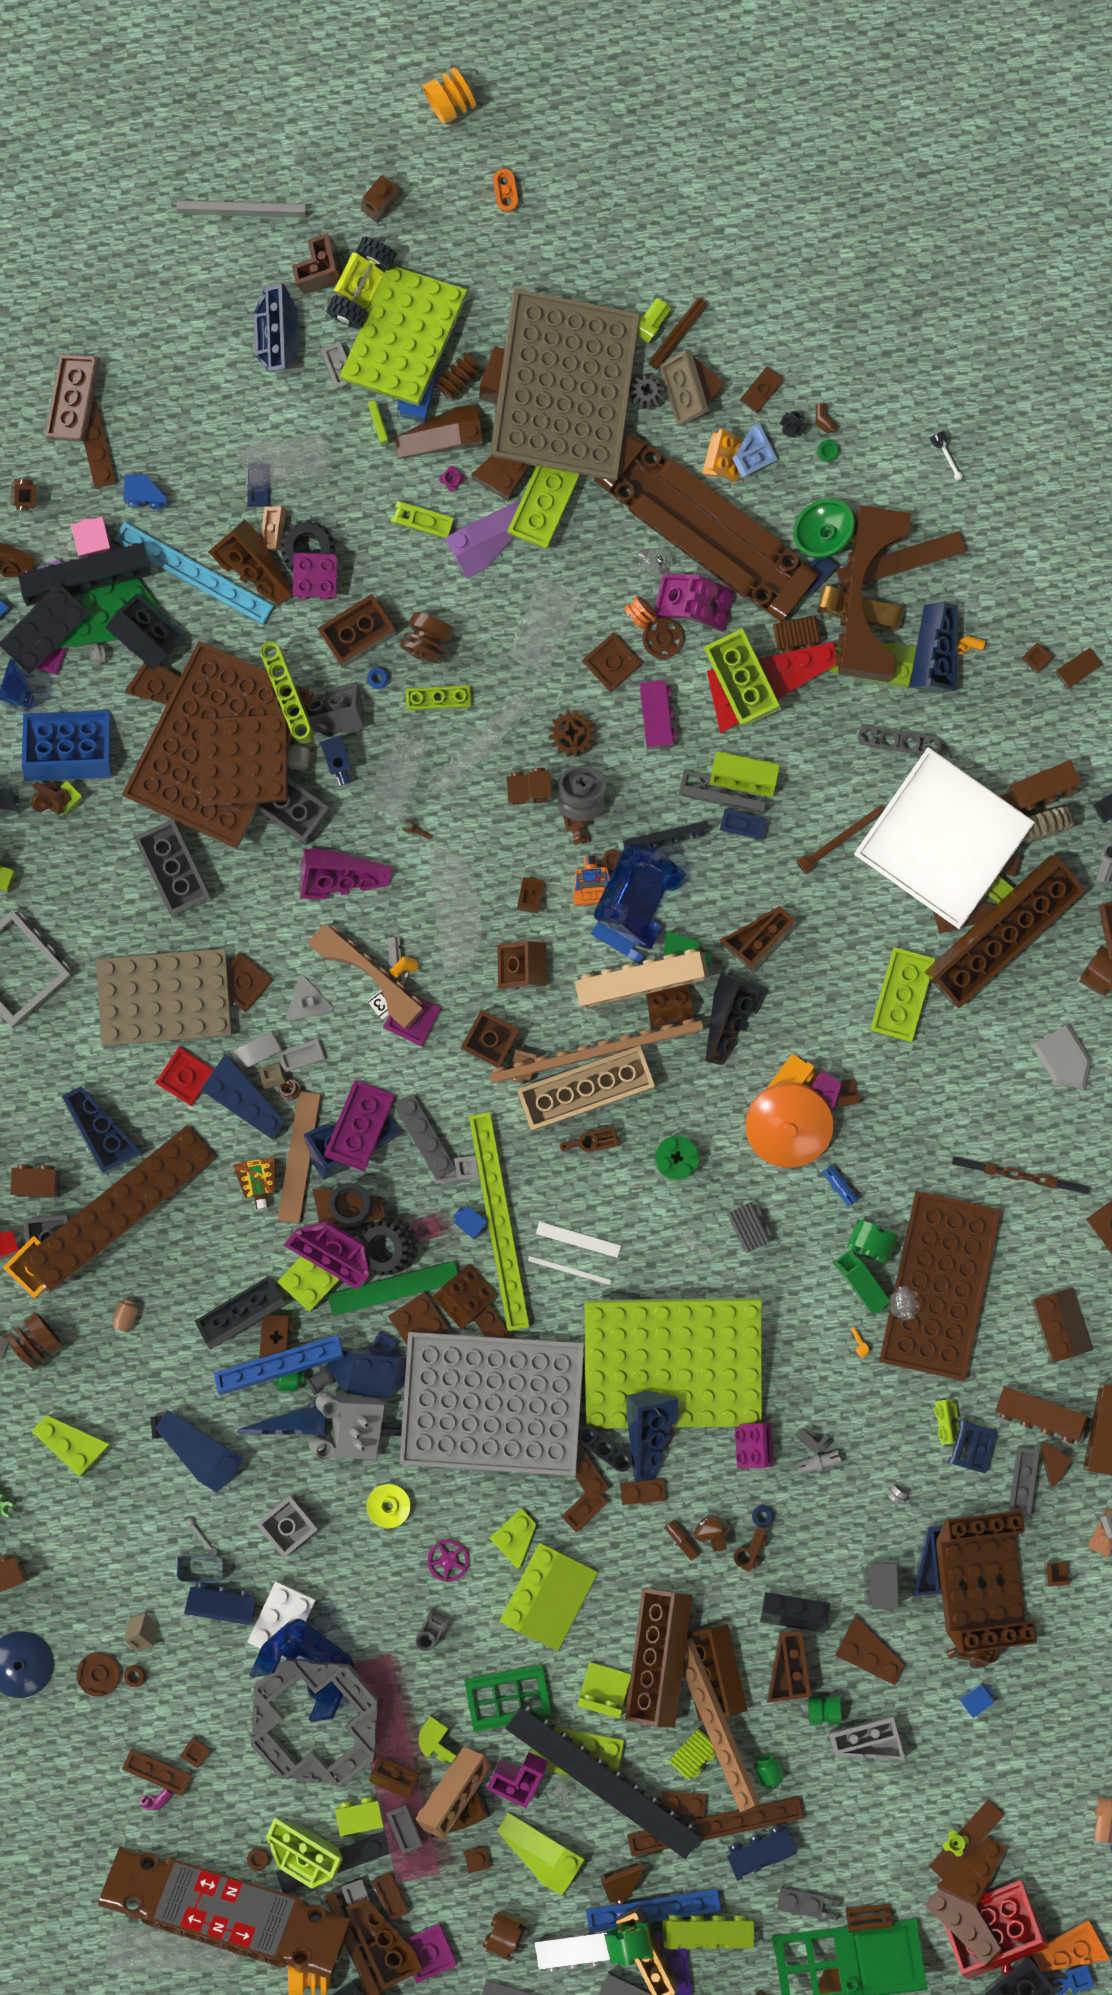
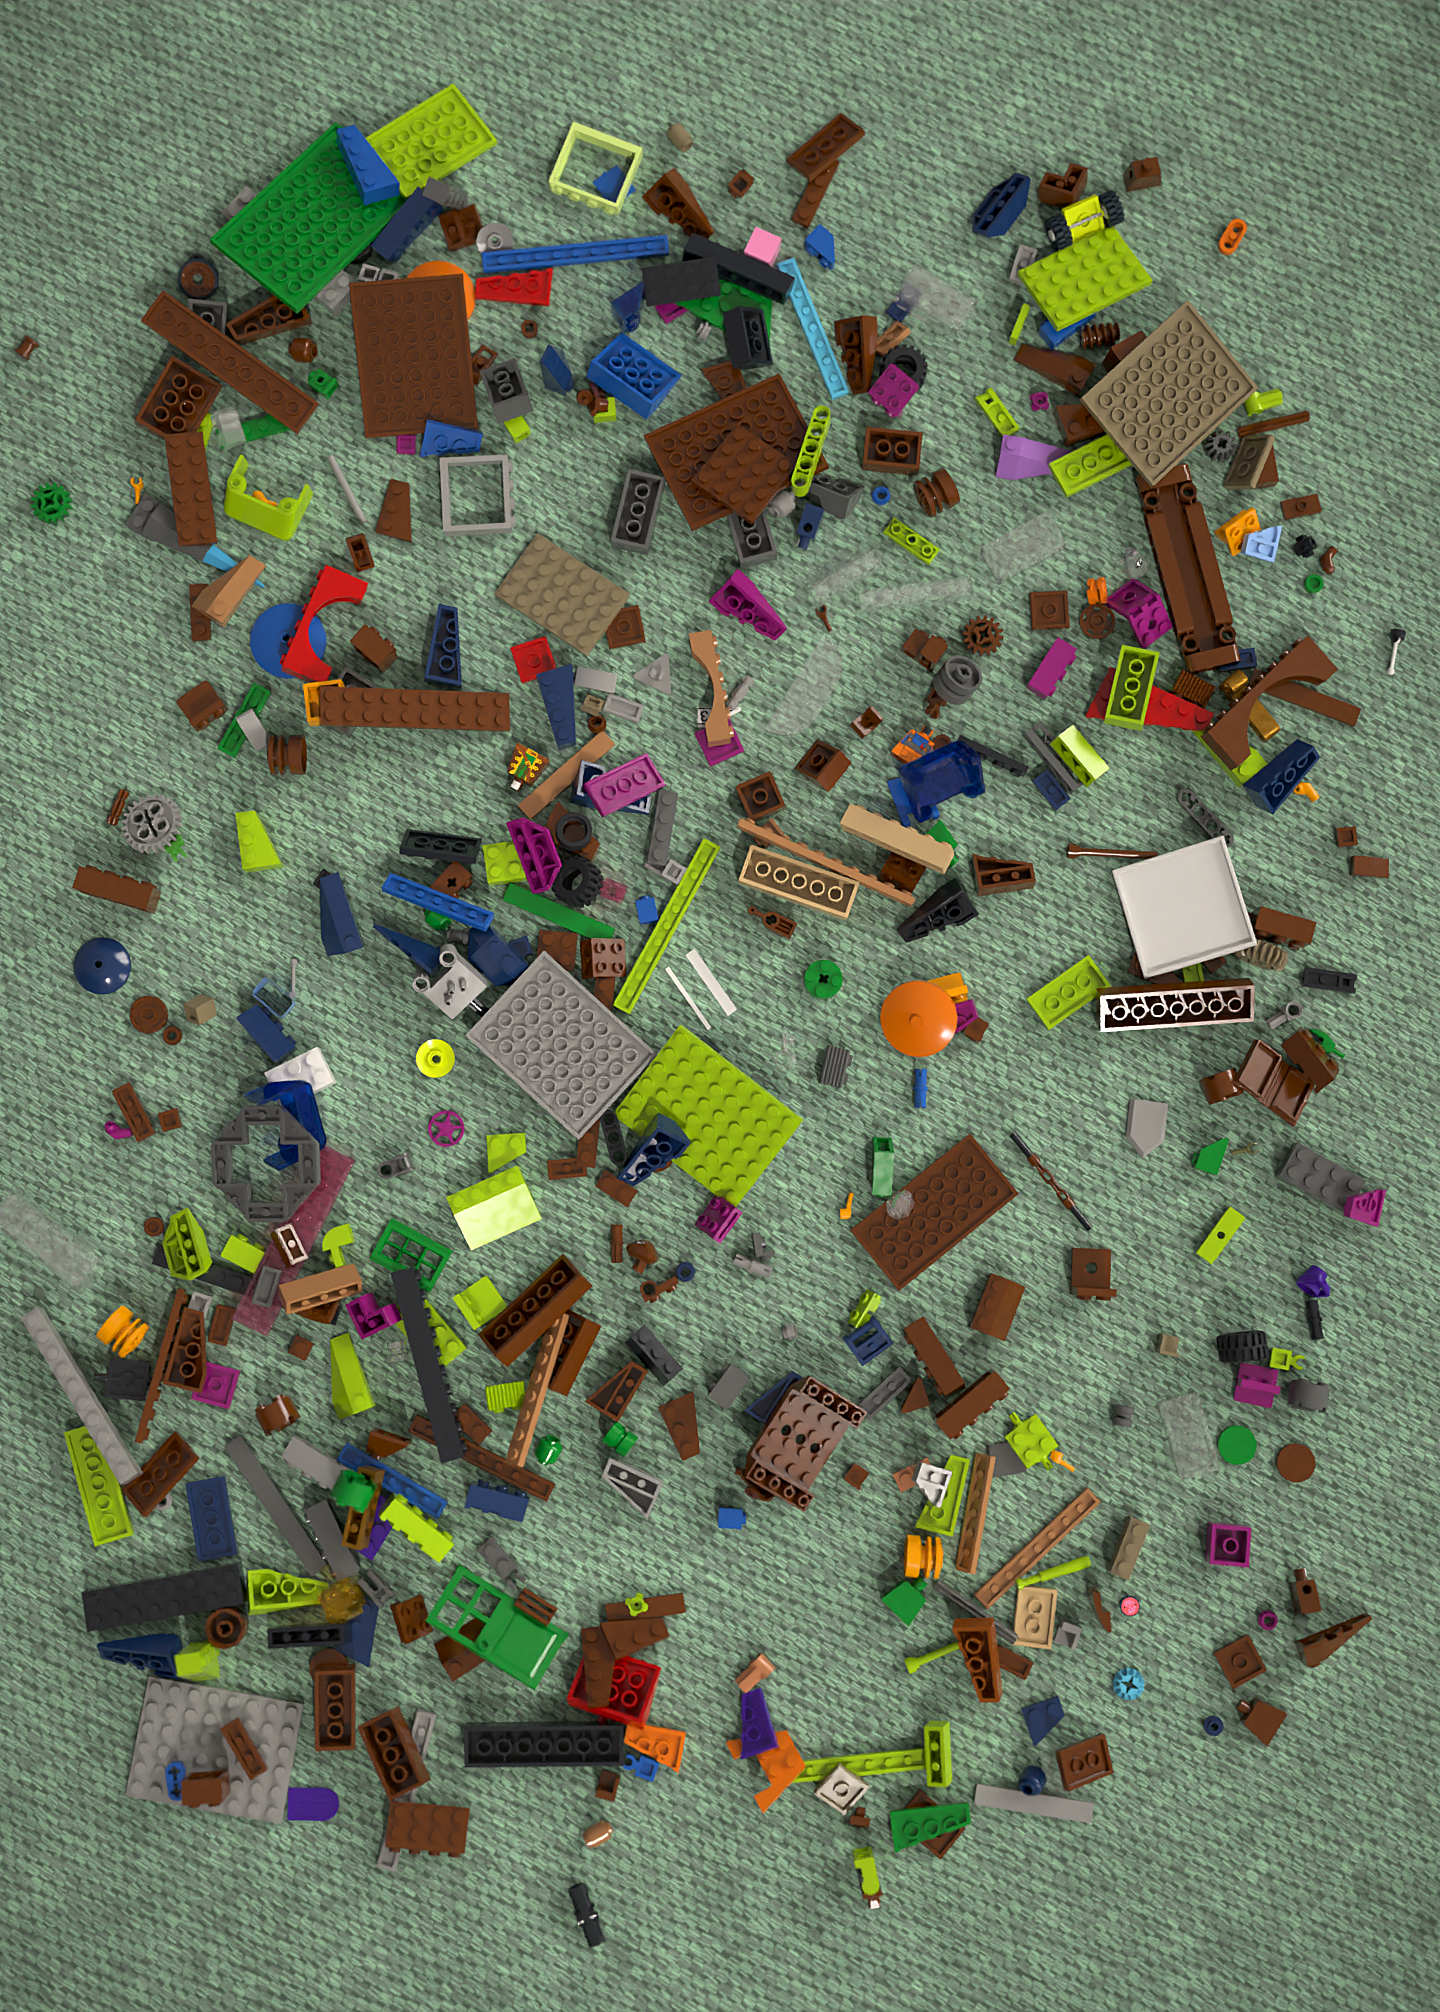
camera: 35 degrees right, 0 degrees up
(124, 1315) = (362, 787): medium nougat brick -> none
(225, 1912) = (99, 1244): panel -> none
(241, 208) = (1042, 110): light grey tile -> none
(287, 1526) = (356, 1016): light grey brick -> none
(405, 963) = (742, 700): light orange arm -> none
(449, 95) = (1245, 141): light orange wheel -> none
(818, 521) = (1269, 632): green dish -> none
(872, 1241) = (911, 1143): green brick -> none

